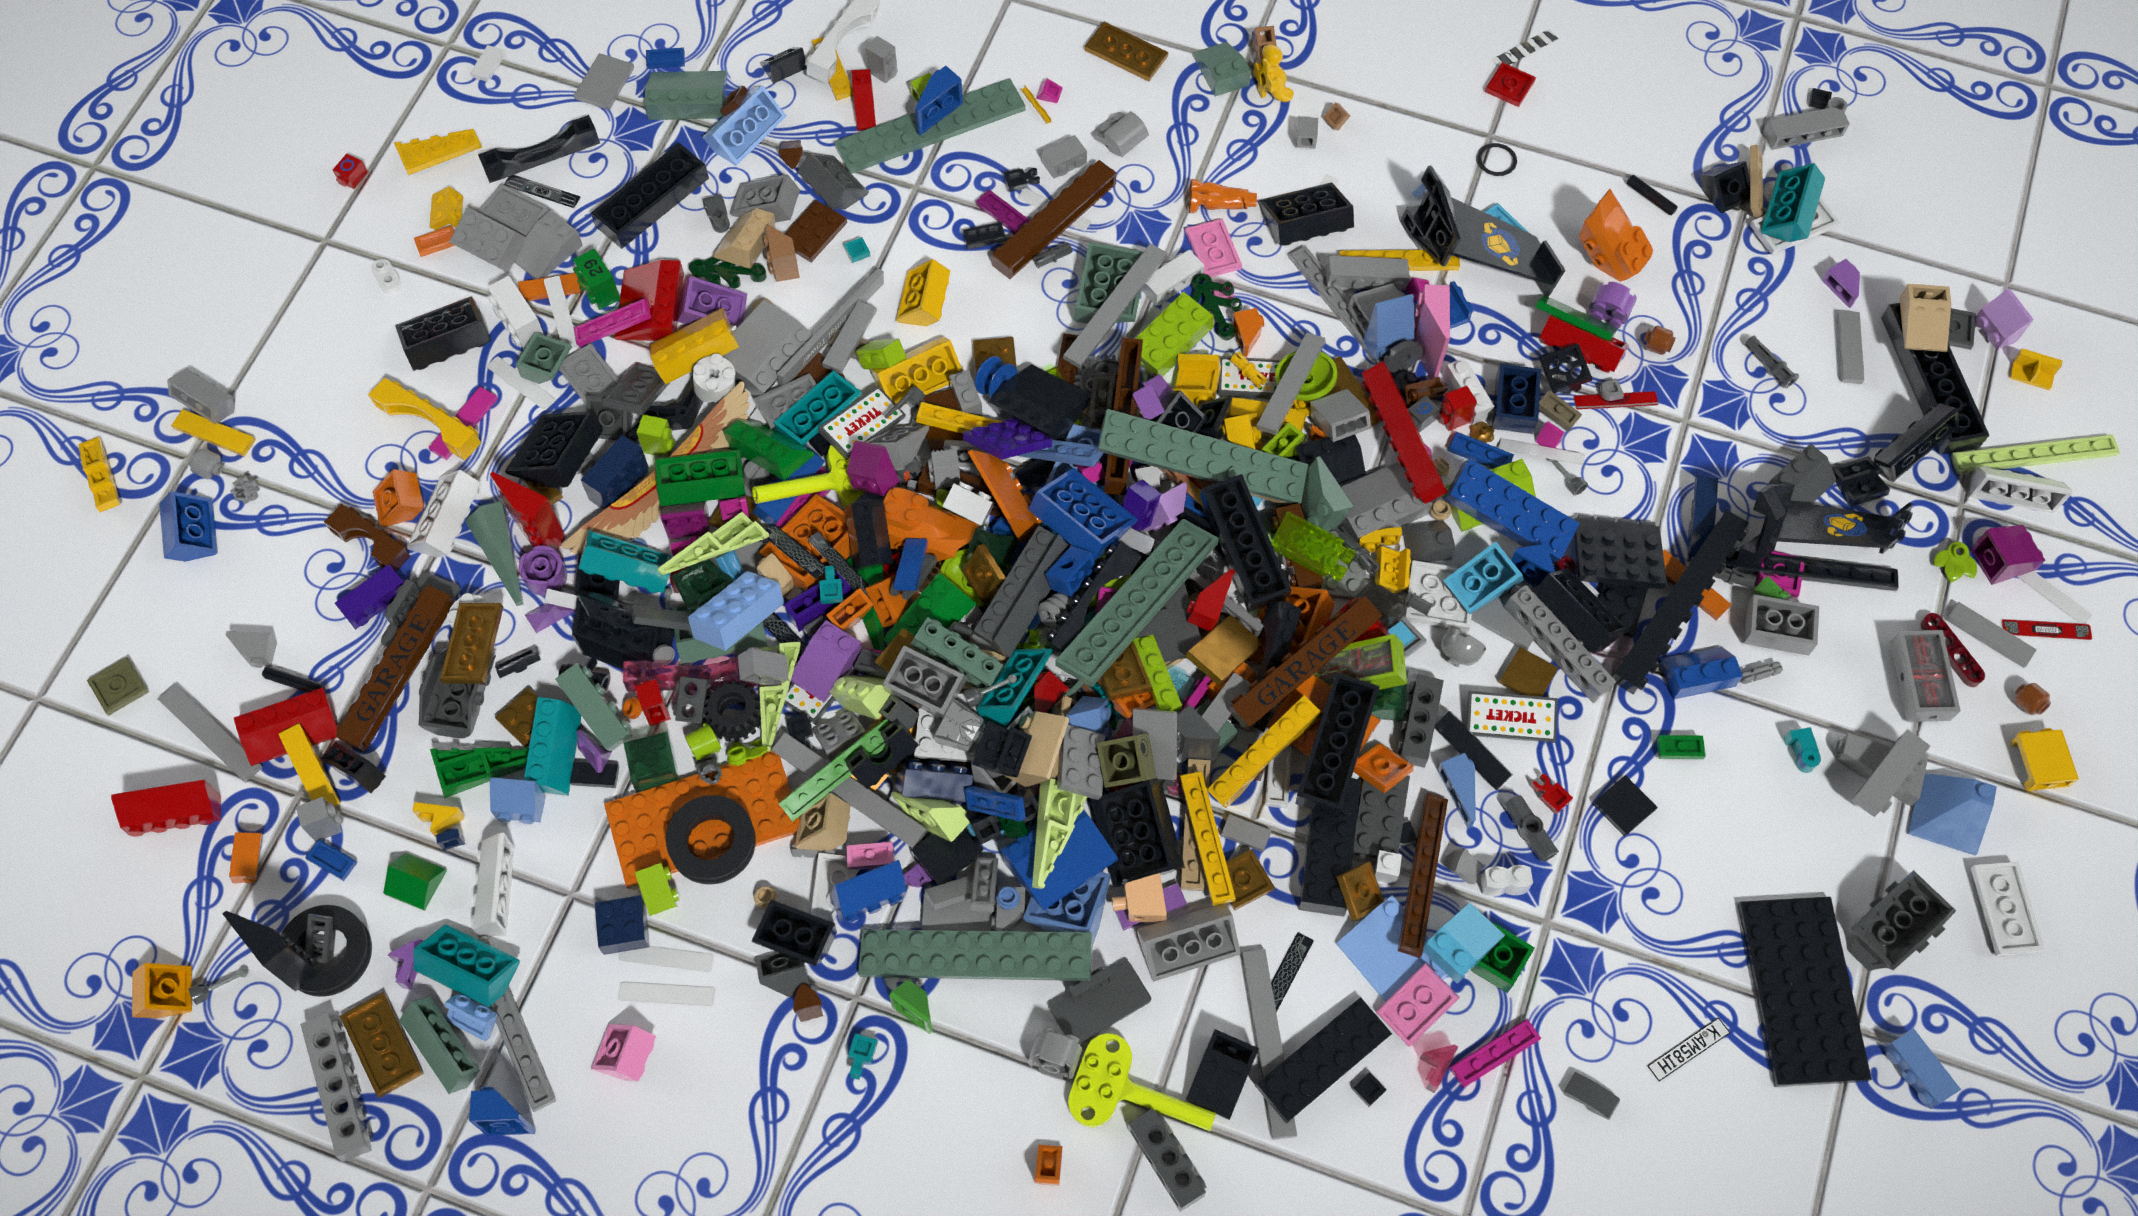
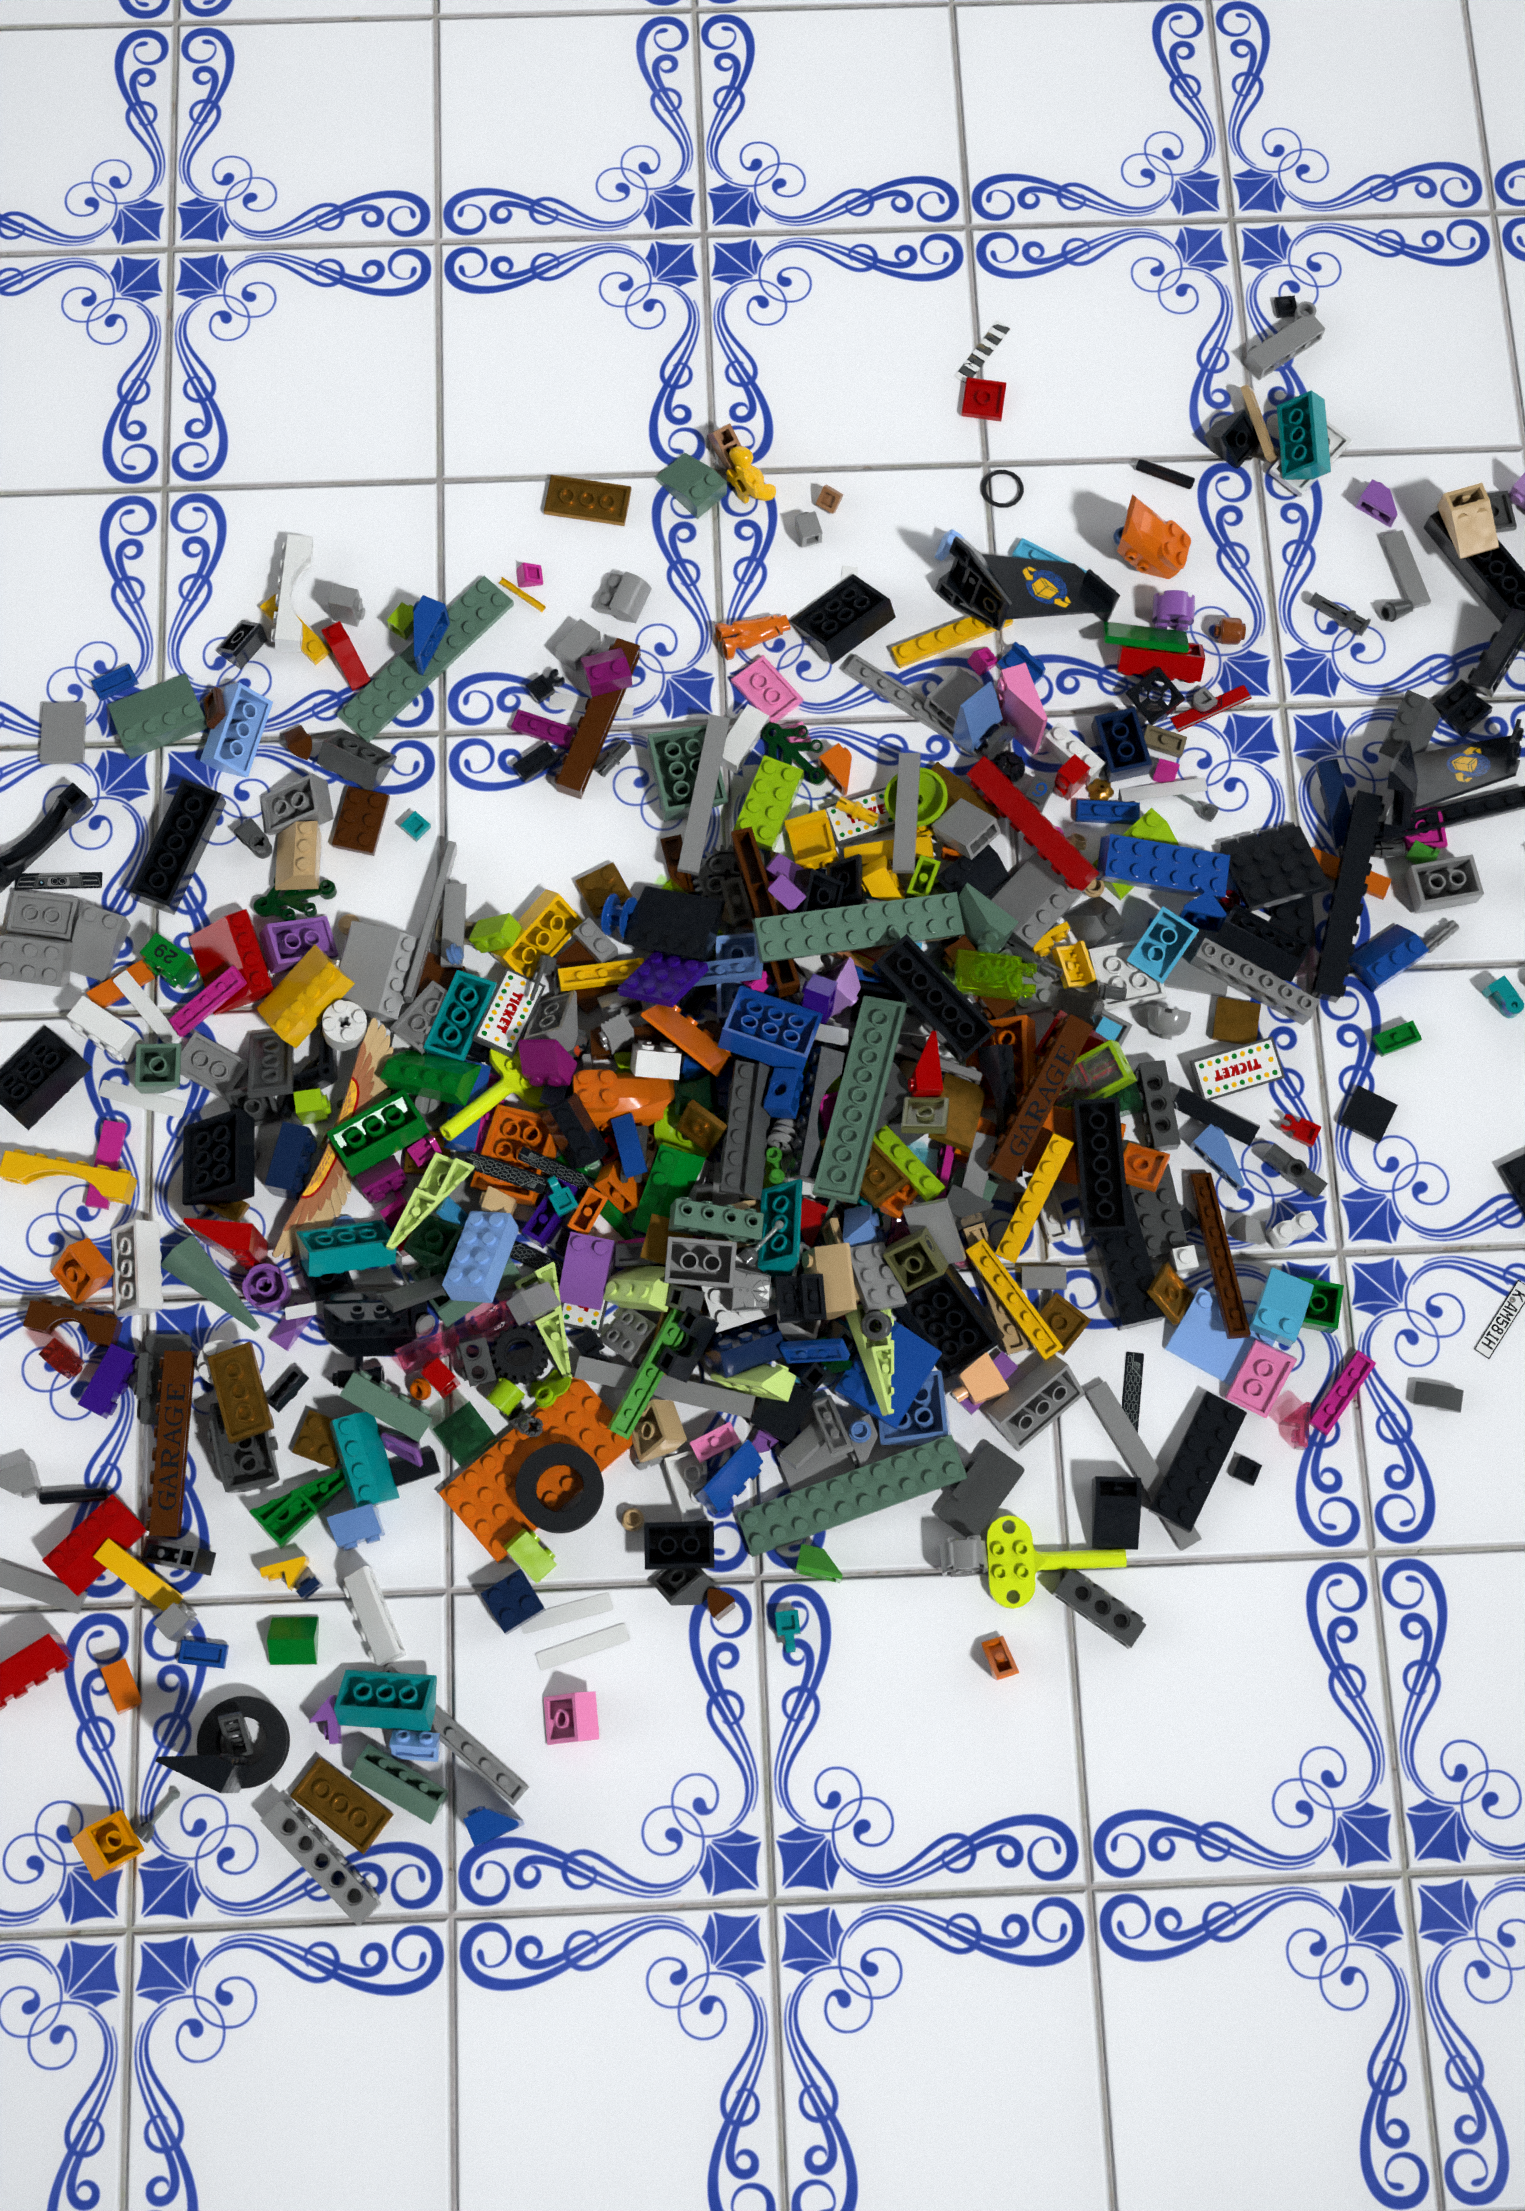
camera: 25 degrees left, 10 degrees up
(341, 560) = (62, 1358): none -> clear red brick
(780, 255) = (344, 862): medium nougat slope -> none
(837, 357) = (455, 954): none -> medium blue plate
(923, 294) = (504, 850): yellow slope -> none
(1035, 641) = (777, 1175): none -> bright green plant
(1062, 801) = (868, 1325): none -> dark grey head
(1076, 182) = (607, 672): none -> magenta slope
(1191, 636) = (925, 1115): none -> olive tile
(1366, 272) = (928, 664): light grey brick -> none
(1431, 388) = (1031, 768): reddish brown hinge -> none
(1827, 376) = (1396, 609): none -> dark grey cone

